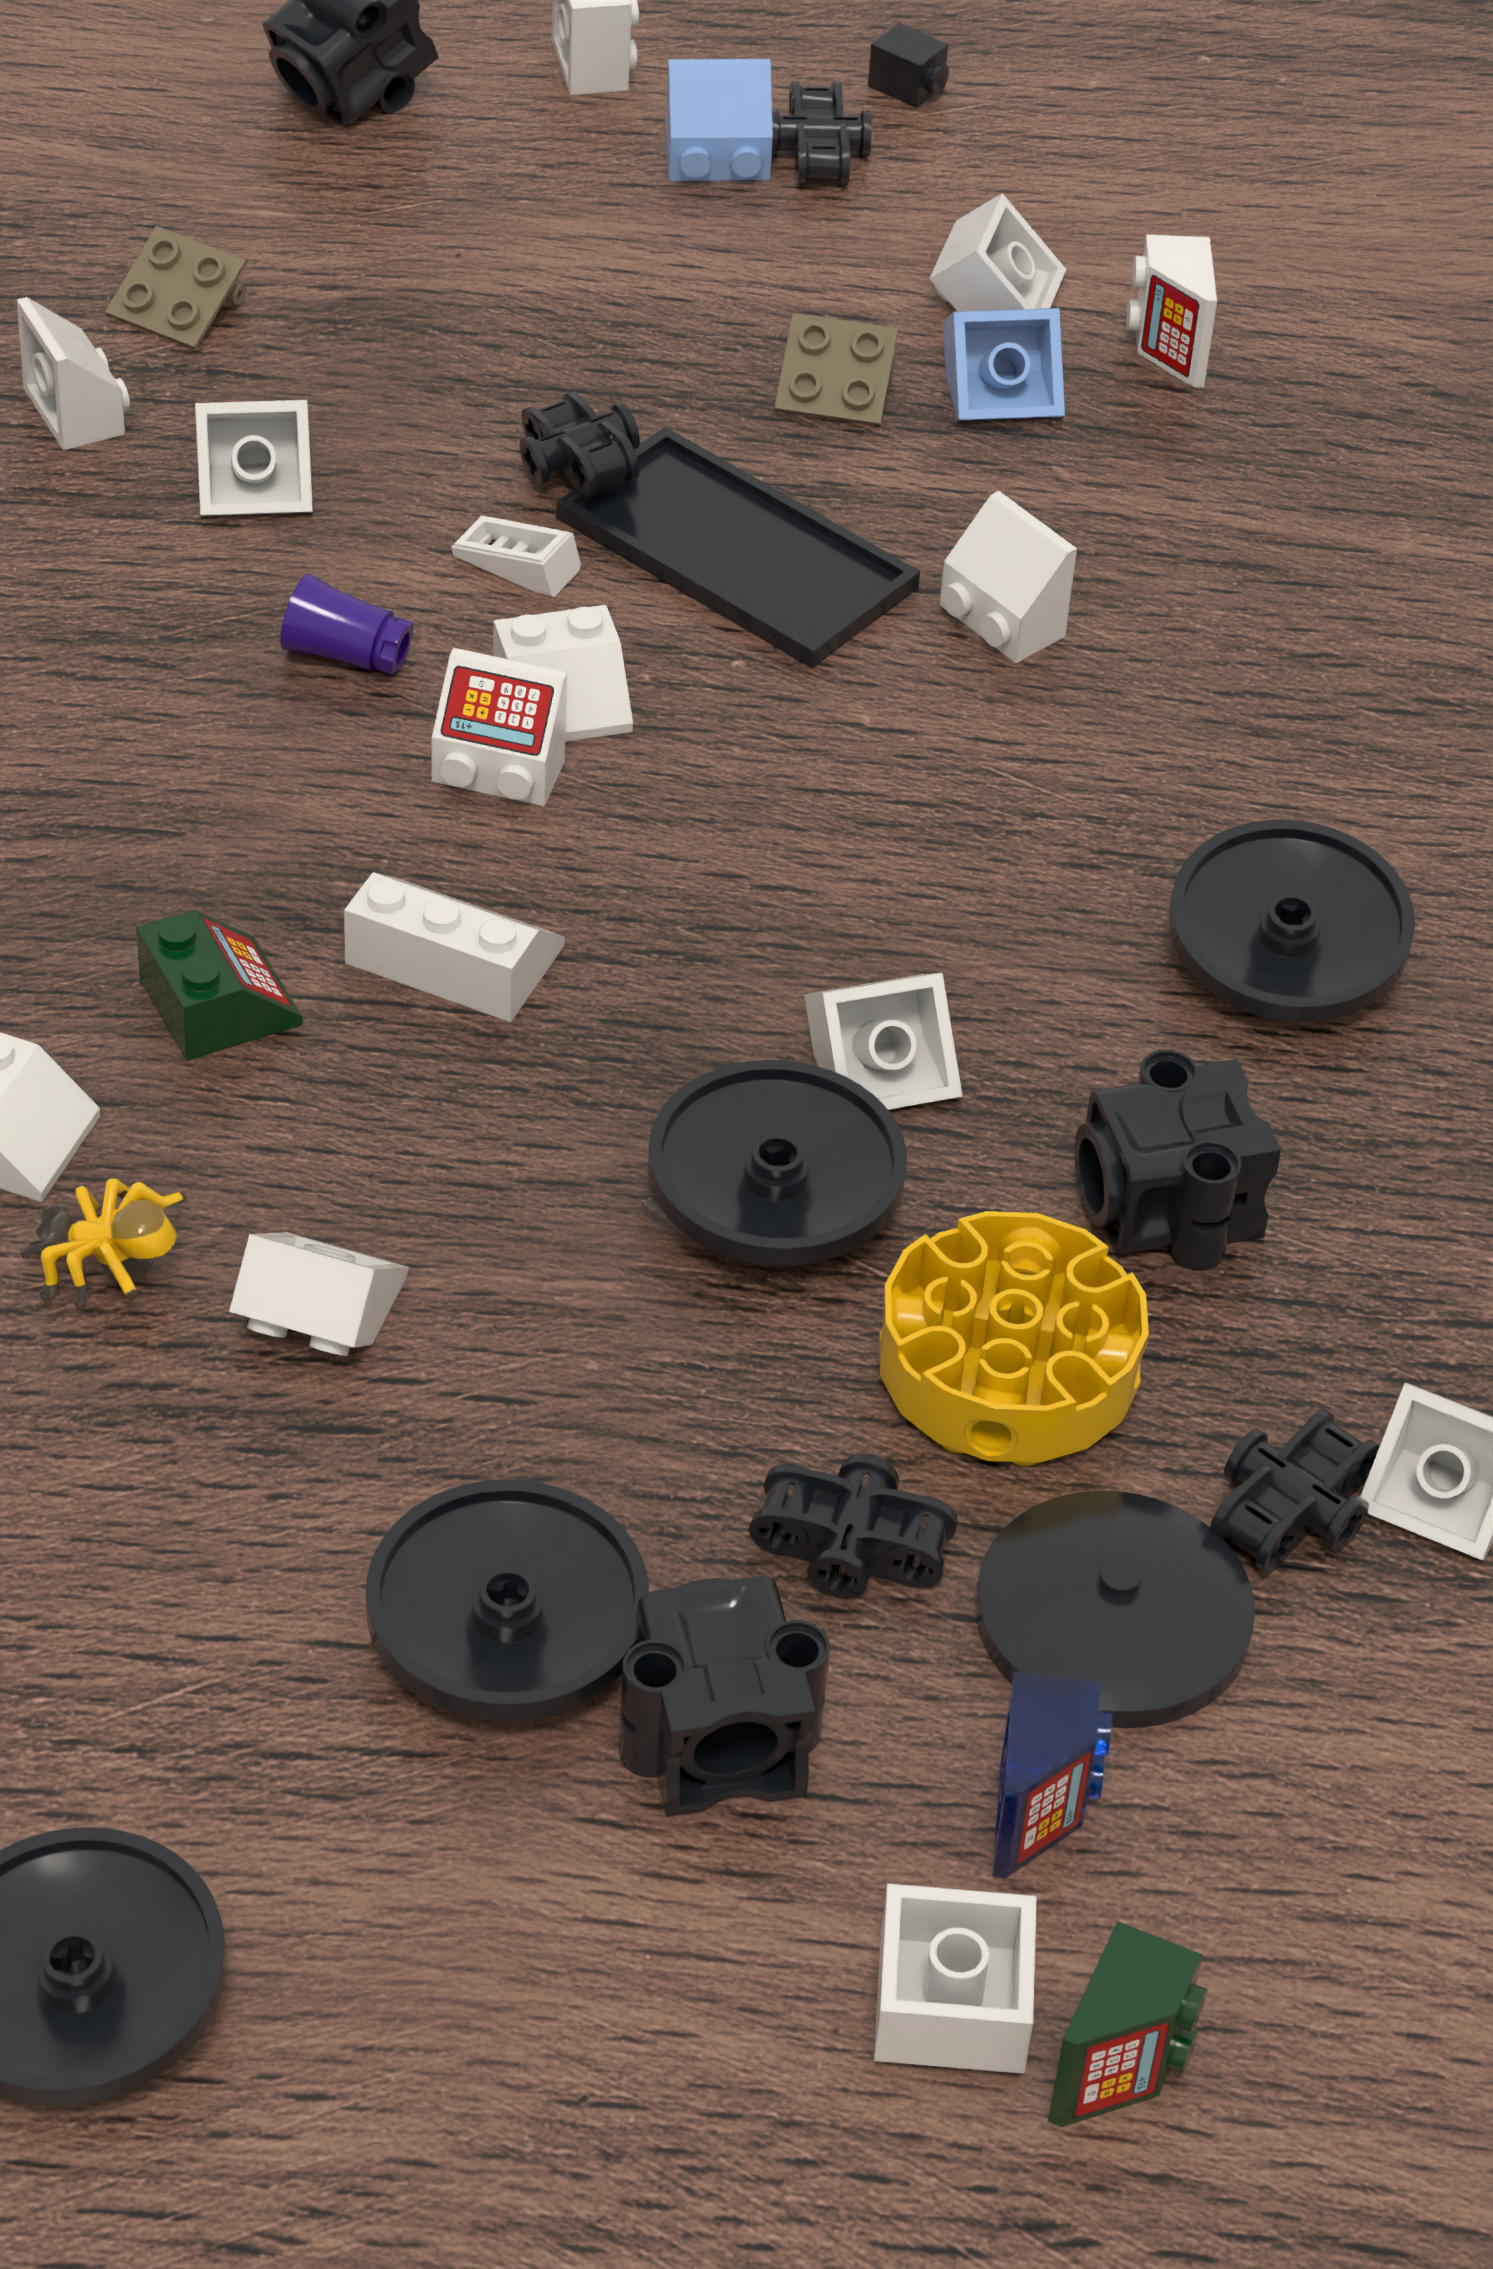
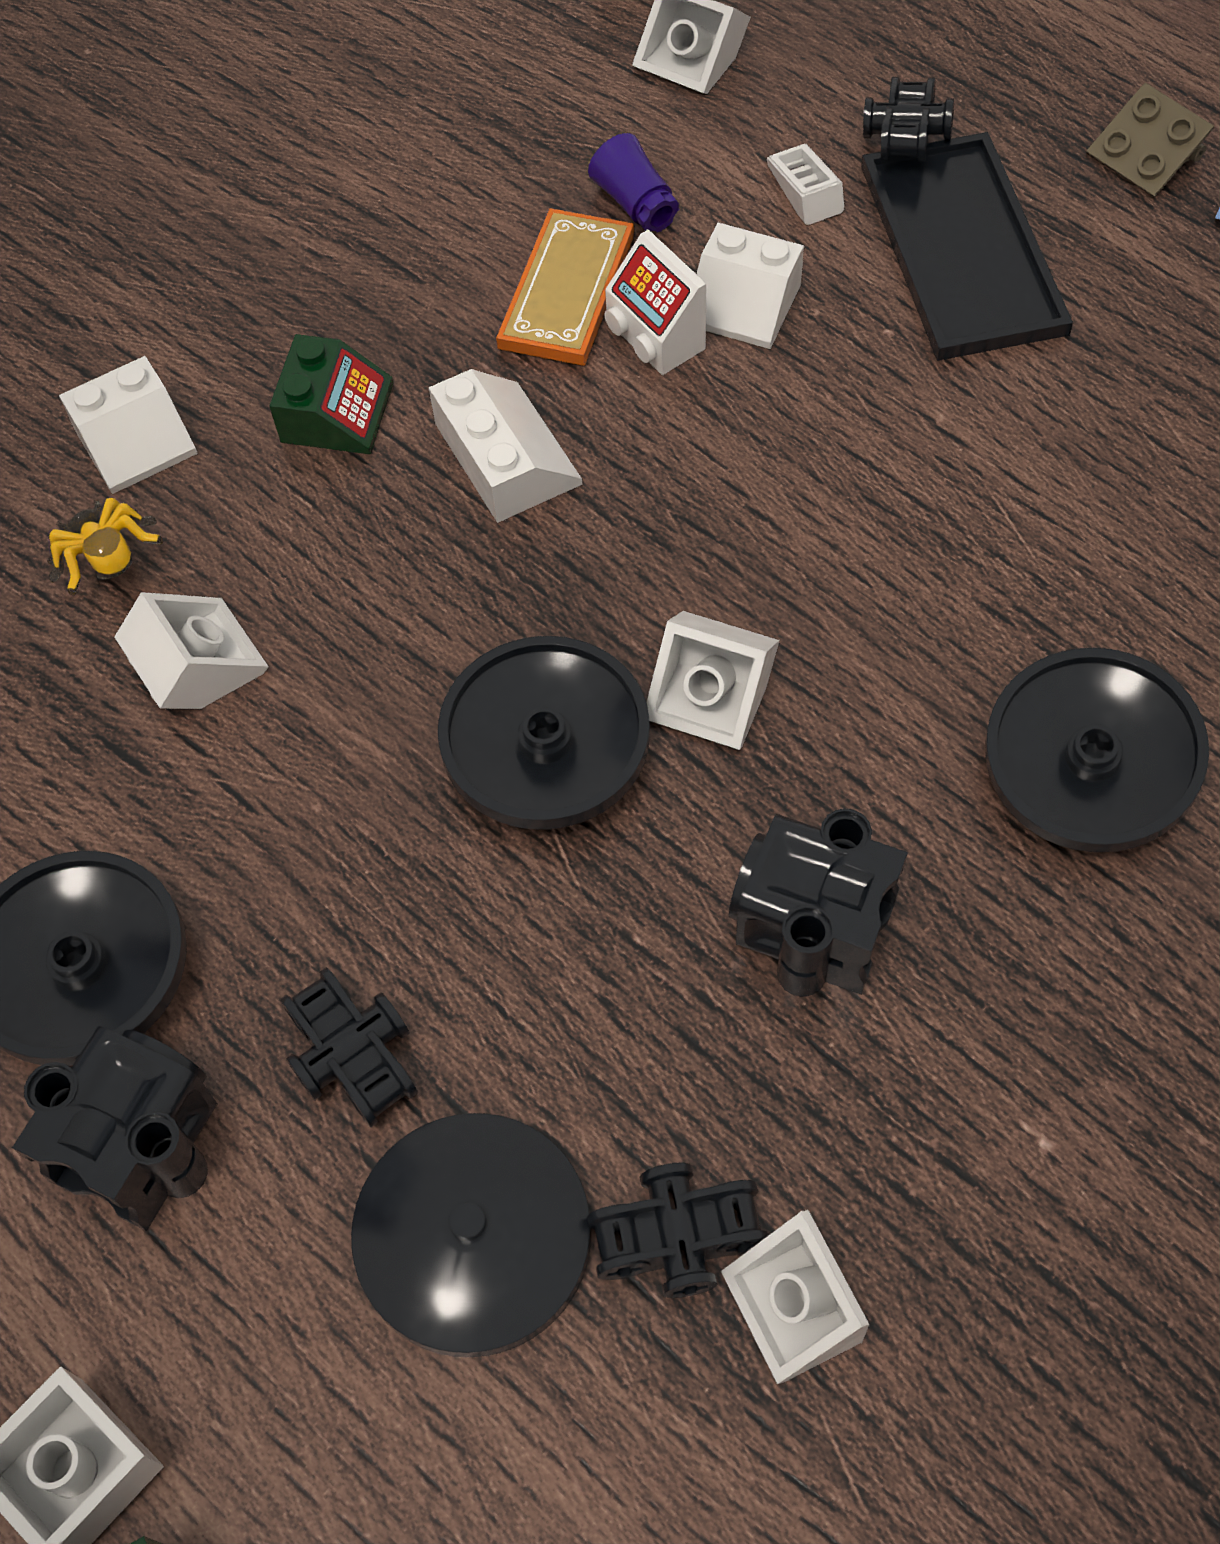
camera: 45 degrees right, 15 degrees up
(358, 764) = (564, 287): none -> pearl gold tile
(1010, 579) = (1120, 361): white slope -> none
(1012, 1337) = (626, 978): yellow brick -> none
(1047, 1765) = (261, 1344): clear blue slope -> none

